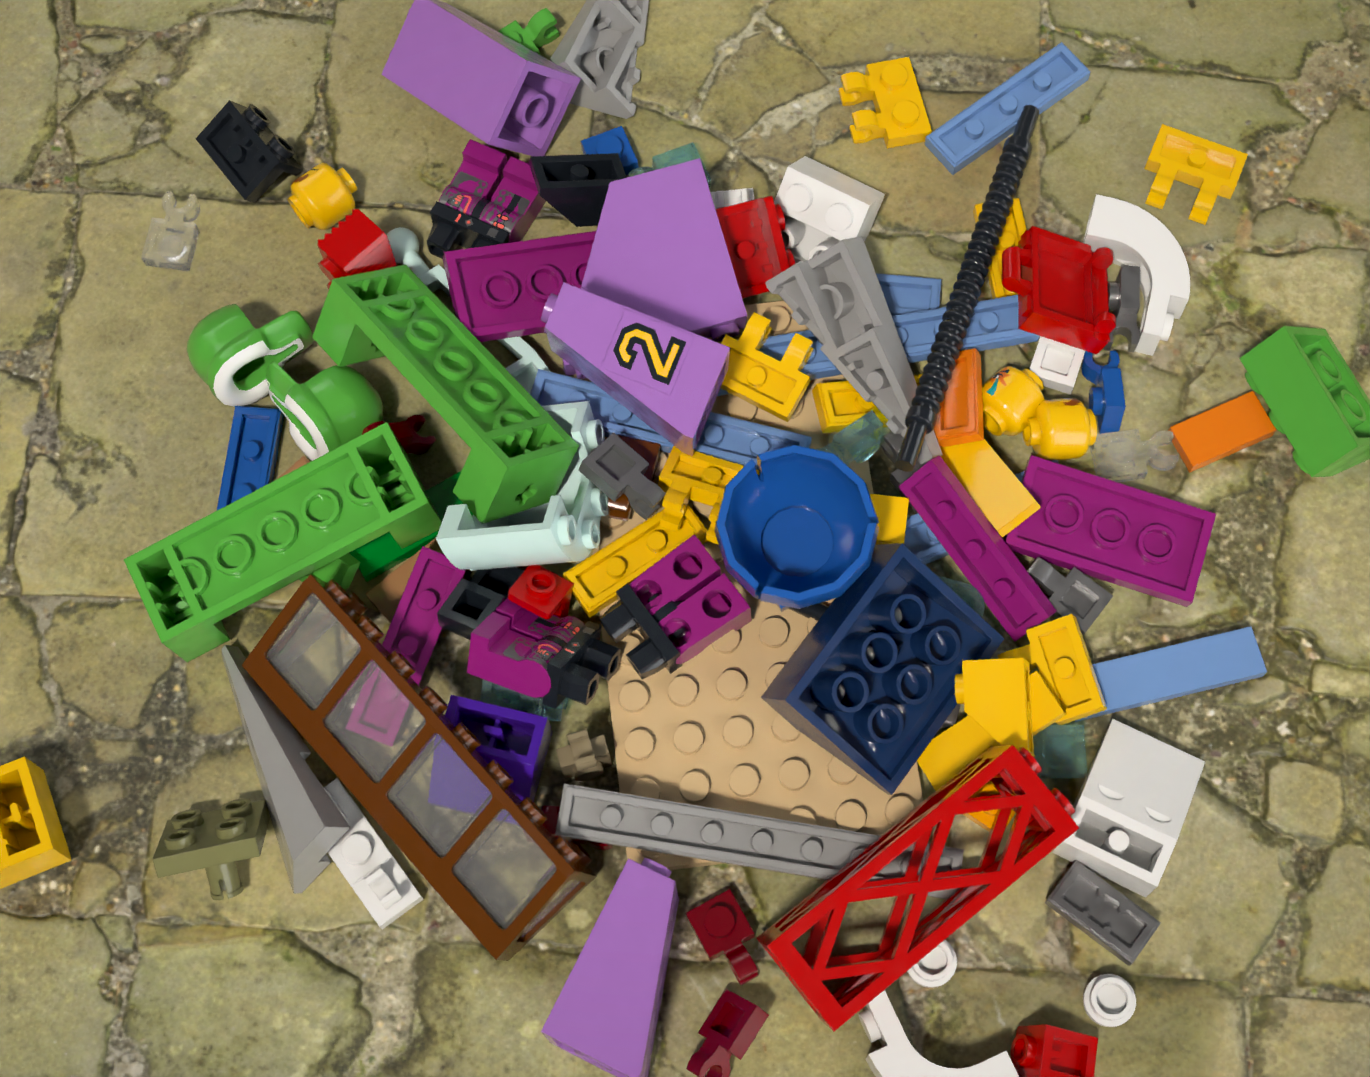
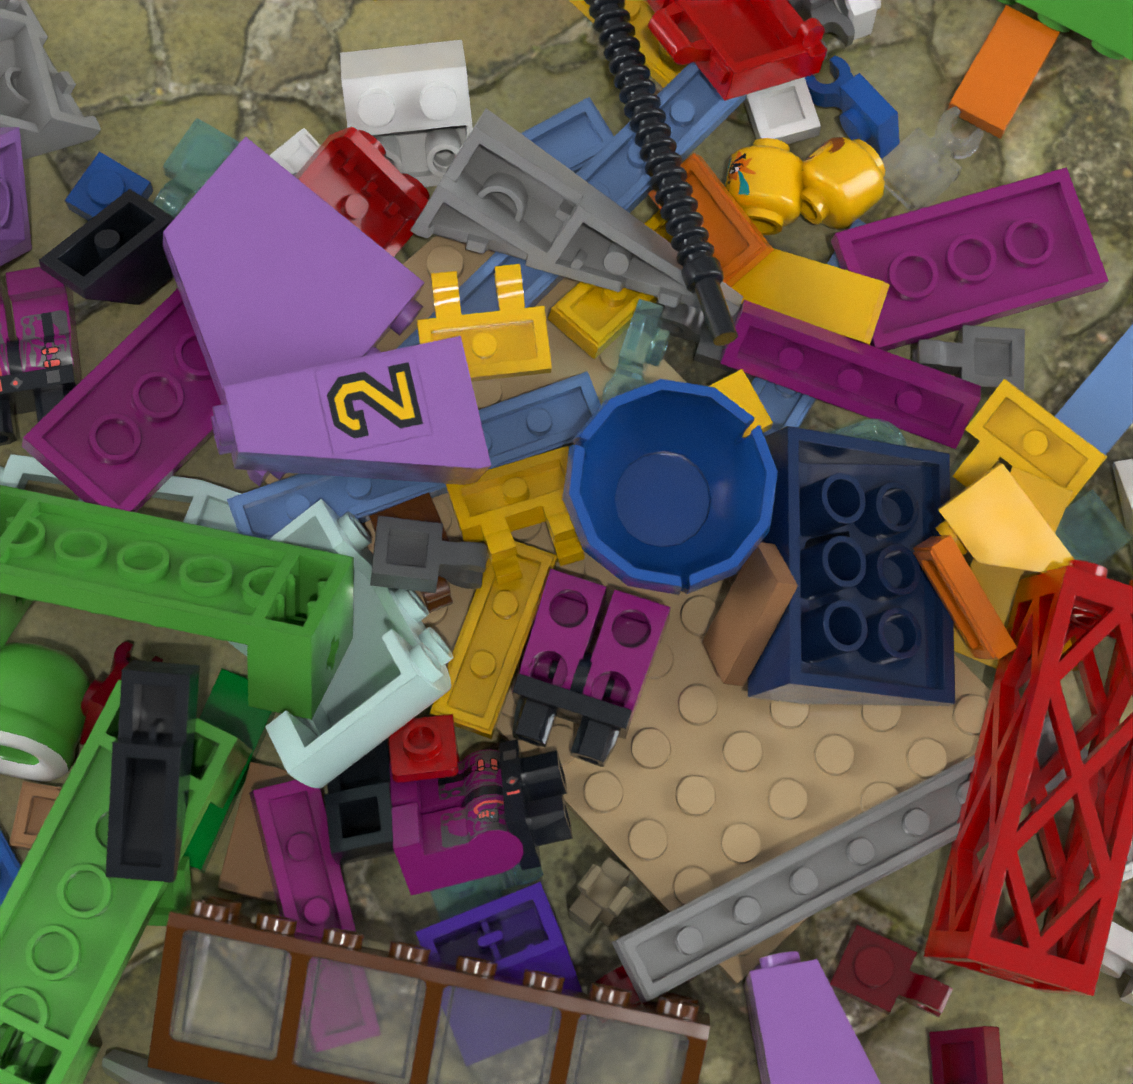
camera: 40 degrees left, 5 degrees up
(362, 483) = (151, 770): none -> black slope
(796, 644) = (749, 614): none -> medium nougat tile
(942, 730) = (963, 598): none -> orange tile

